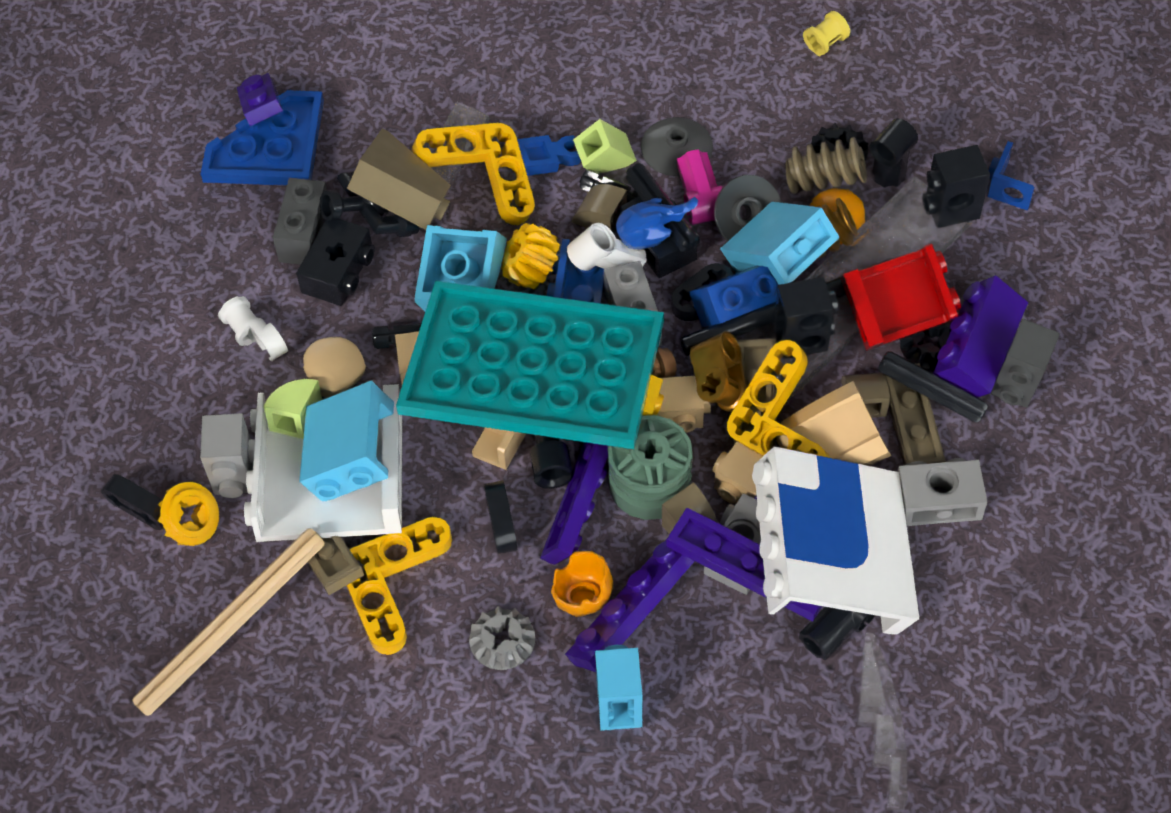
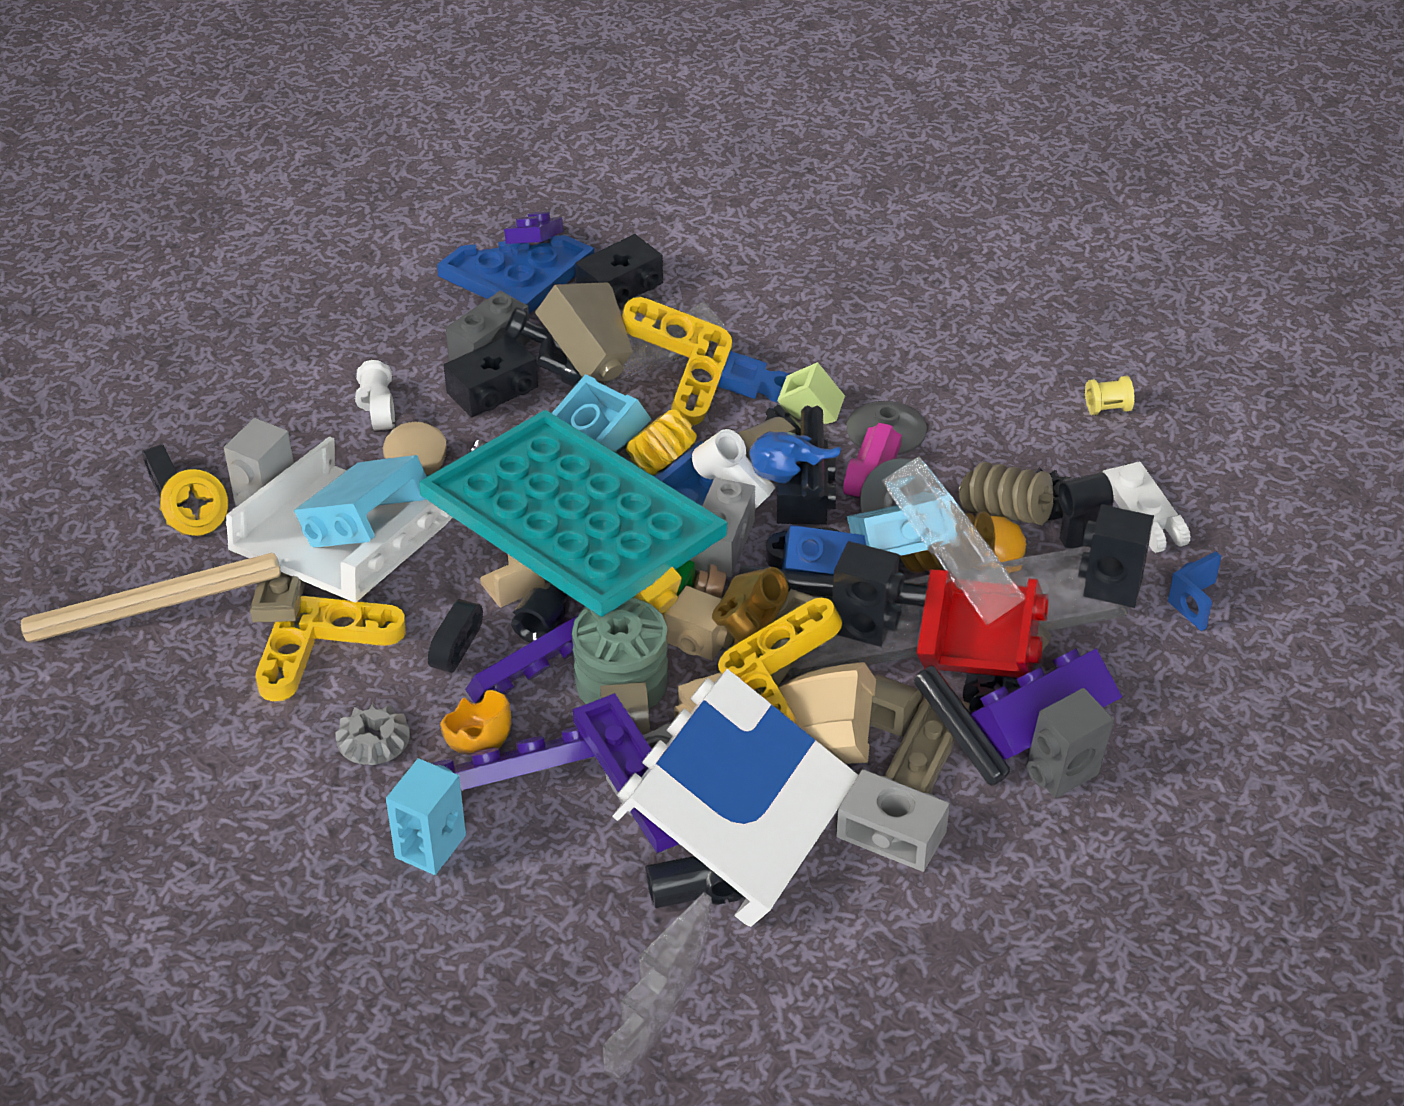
camera: 30 degrees right, 15 degrees down
(287, 406) = (343, 453): yellowish green brick -> none
(361, 105) = (627, 266): none -> black brick
(846, 240) = (953, 540): none -> clear slope
(927, 122) = (1138, 492): none -> white hinge

